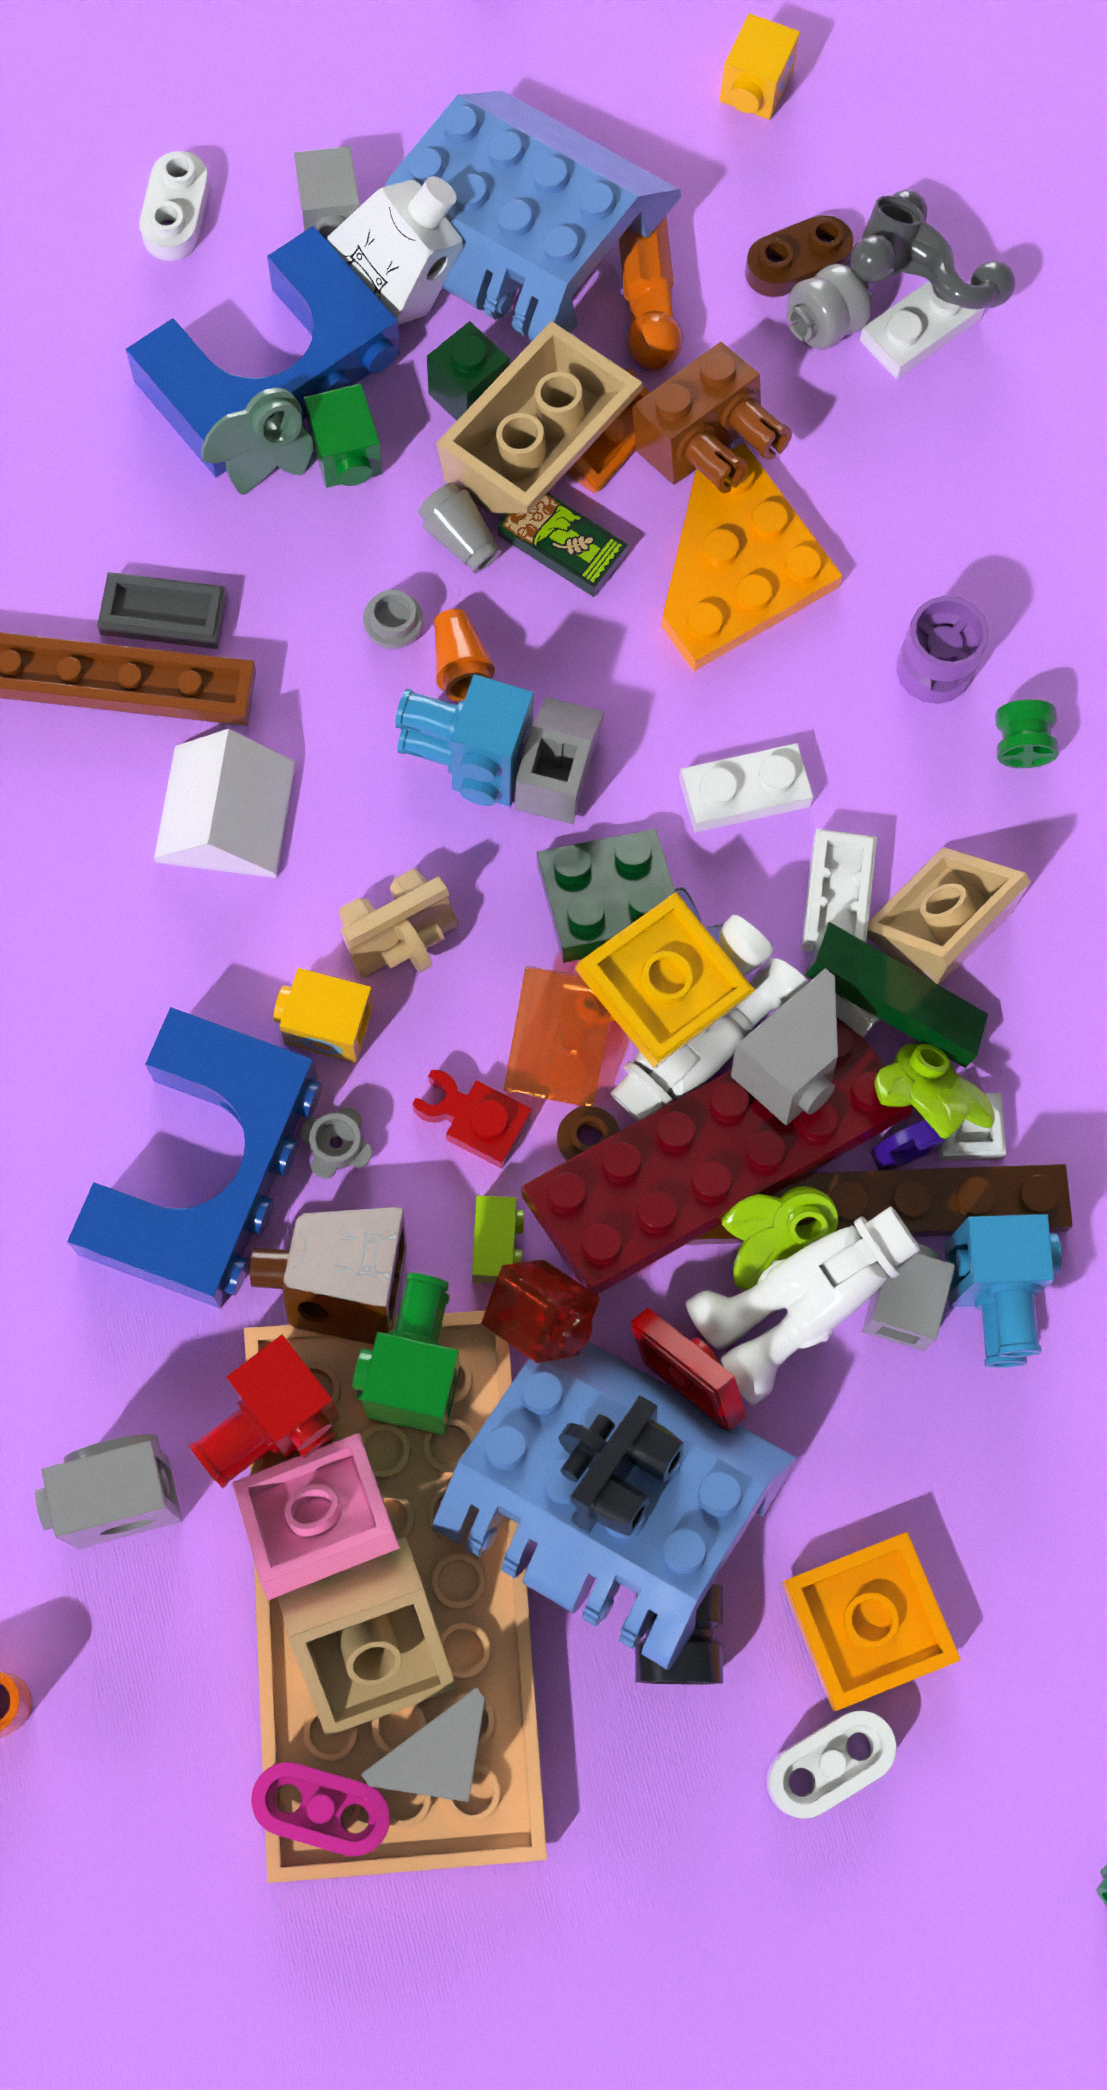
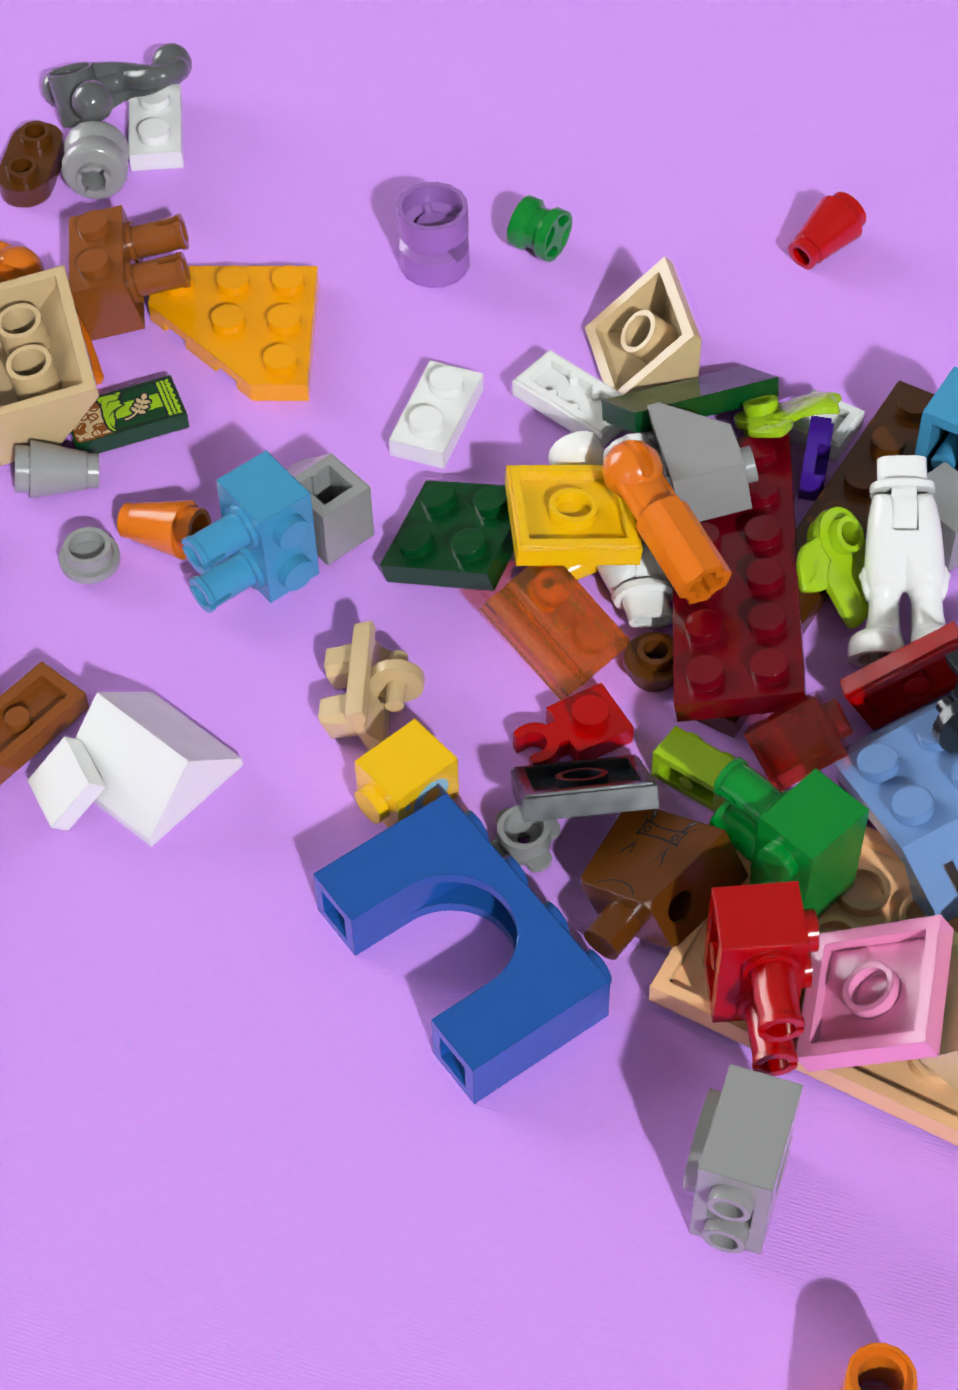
camera: 50 degrees left, 20 degrees down
(156, 762) = (66, 783): none -> white tile
(394, 1162) = (583, 788): none -> tile
(694, 1061) = (665, 522): none -> orange piece

